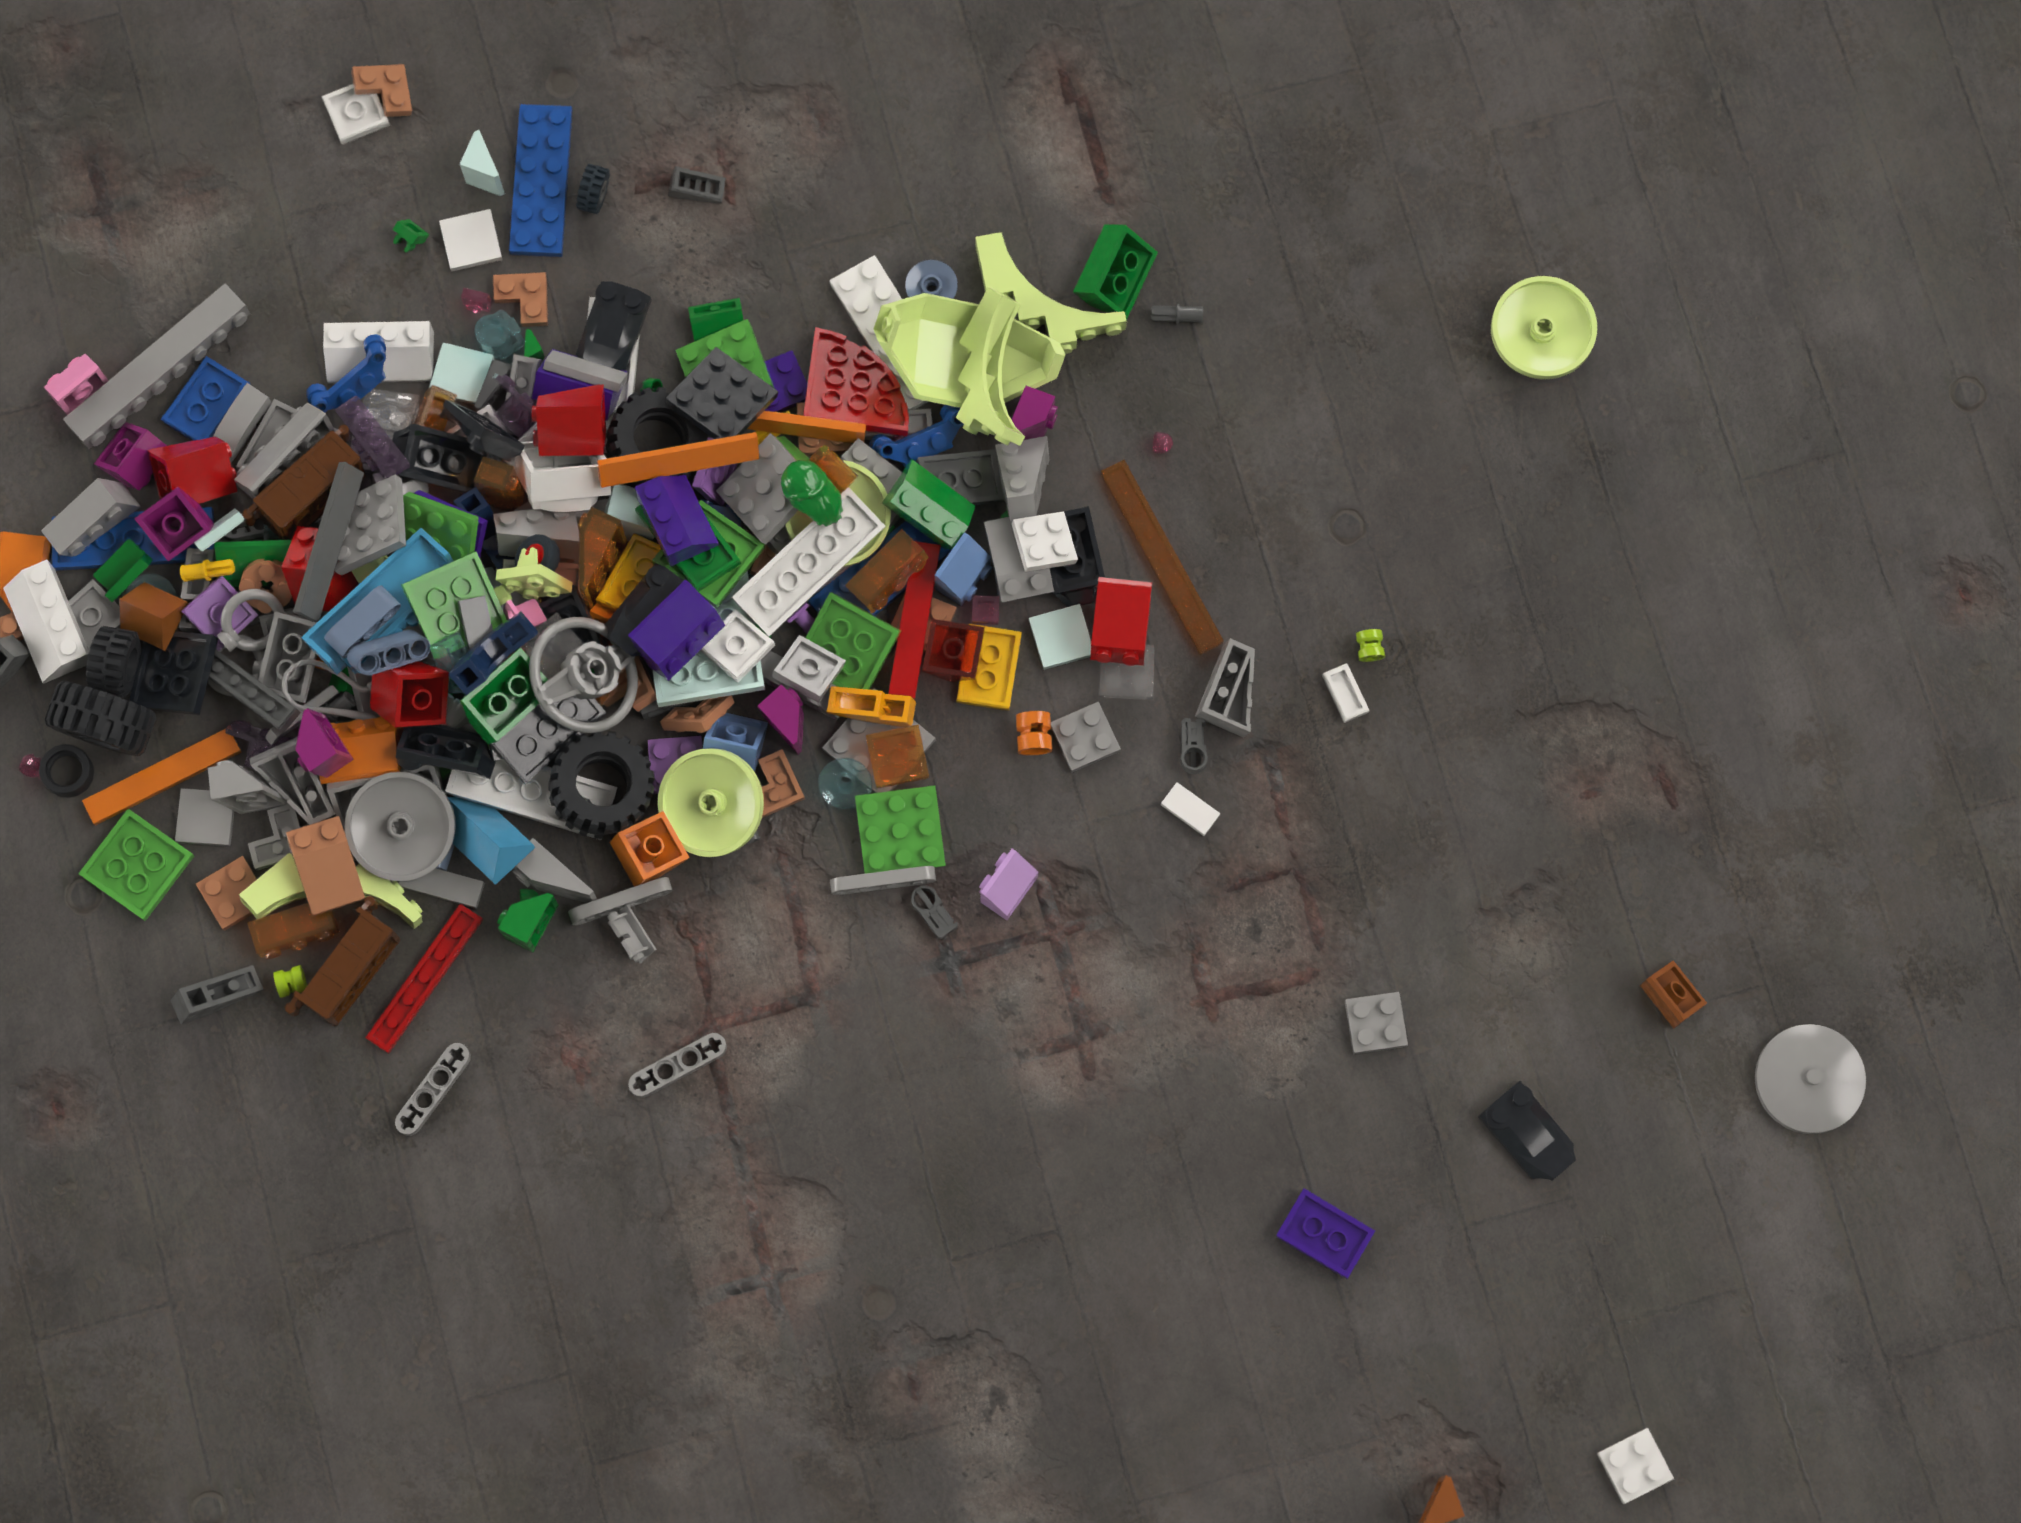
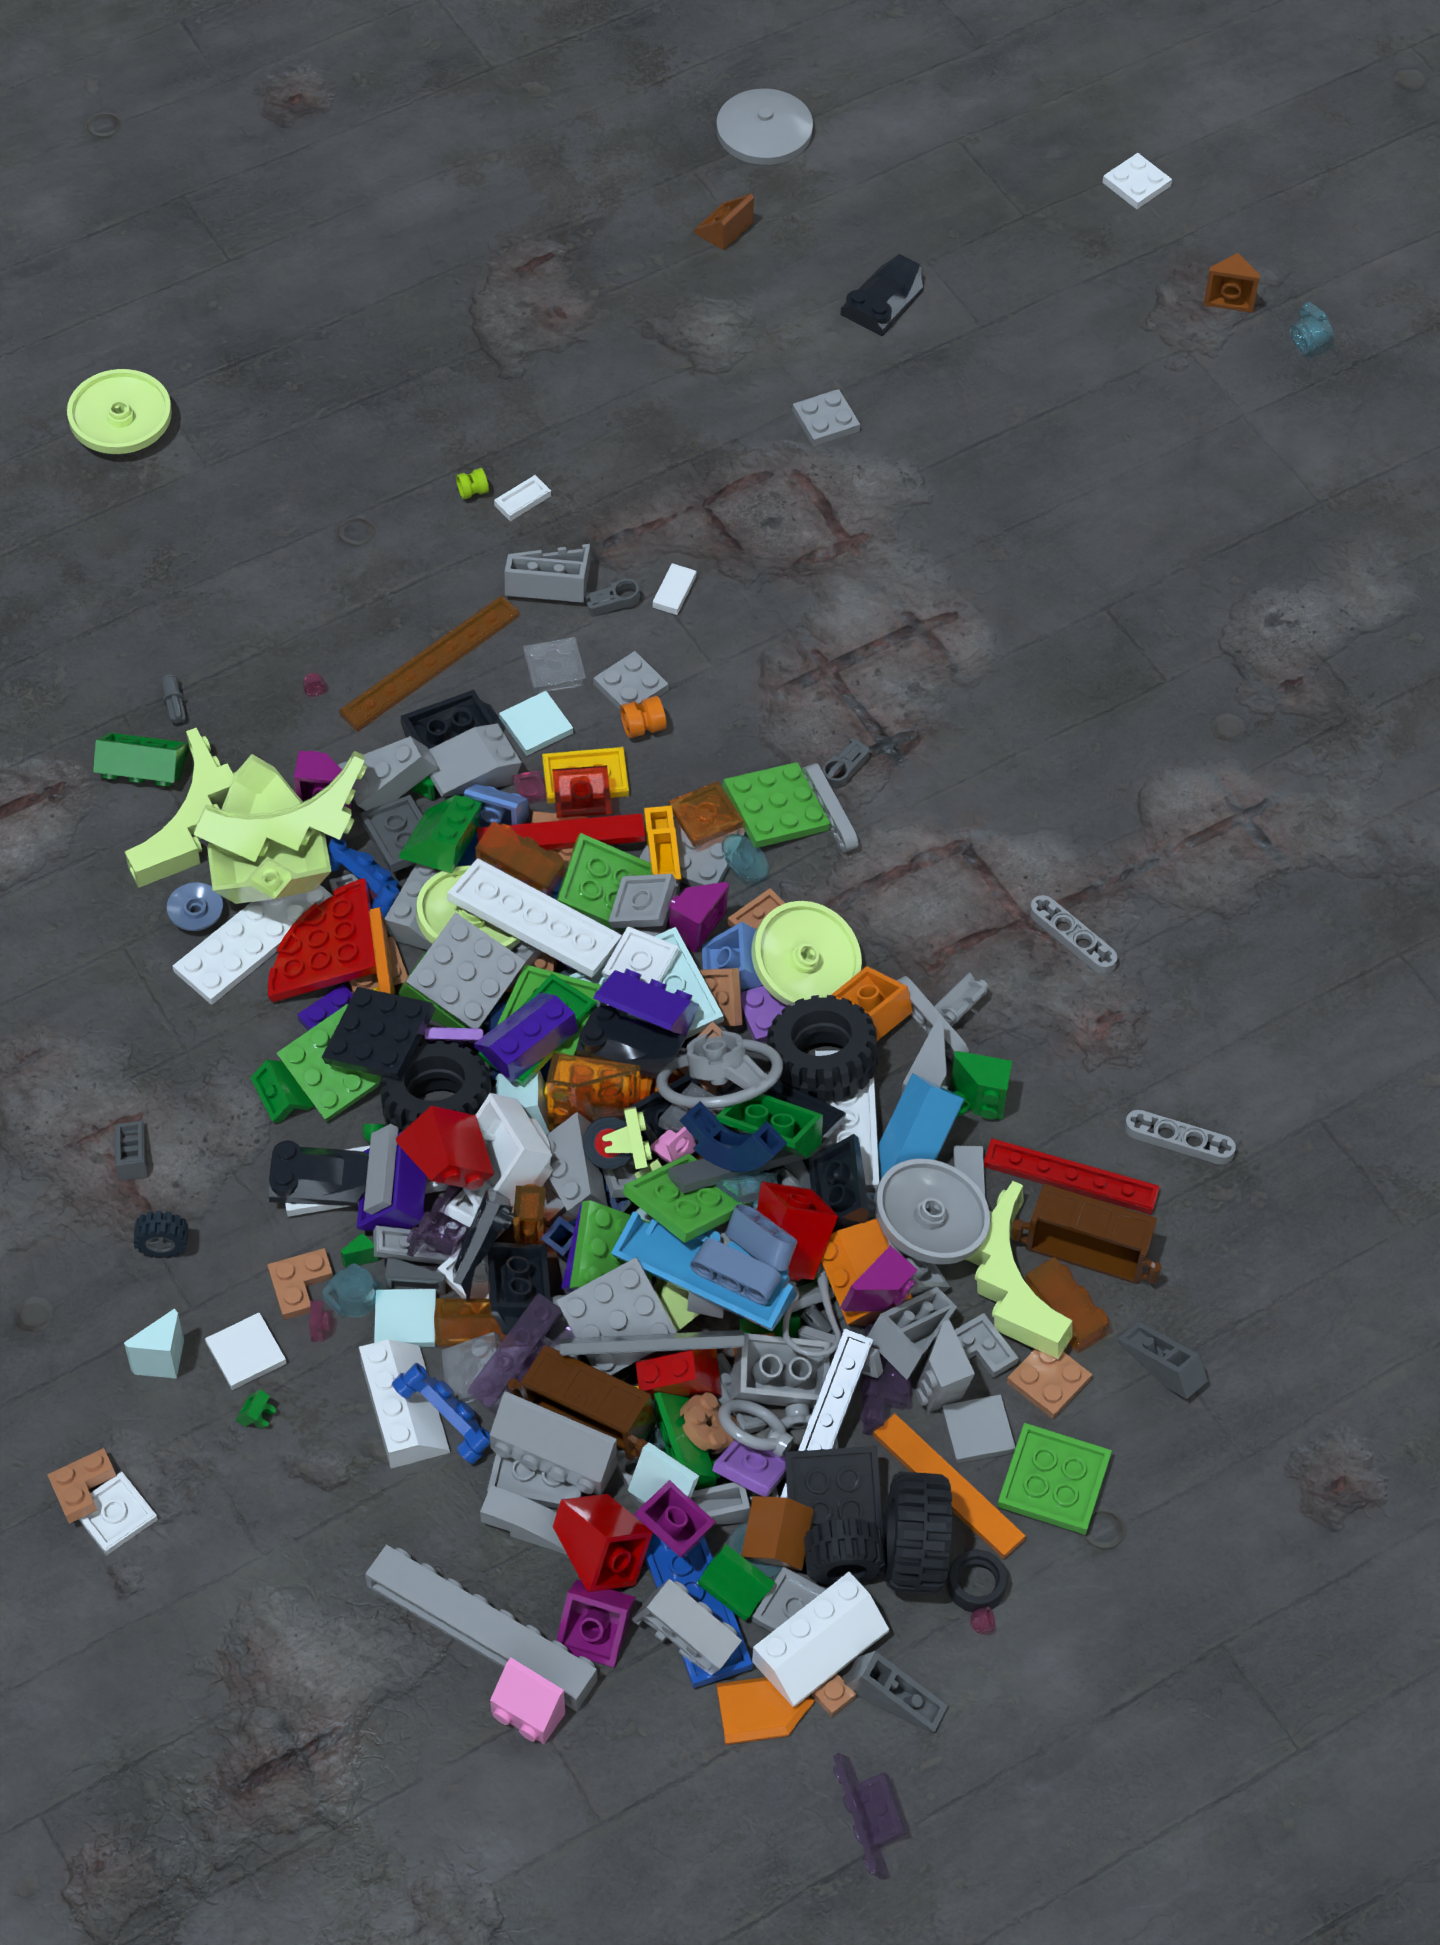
camera: 105 degrees left, 20 degrees down
(204, 400) = (508, 1569): blue tile -> none
(207, 570) = (712, 1480): yellow axle -> none
(290, 981) = (1121, 1290): lime wheel -> none
(325, 865) = (995, 1271): nougat slope -> none
(540, 180) = (133, 1303): blue plate -> none
(678, 459) = (465, 1038): orange tile -> none
(812, 492) = (464, 913): green hair -> none
(835, 468) = (433, 909): clear orange piece -> none
(1008, 884) = (799, 705): lavender slope -> none
(1044, 541) = (451, 734): white plate -> none
(1121, 621) = (513, 663): red slope -> none
(1325, 1233) = (1030, 413): dark purple plate -> none

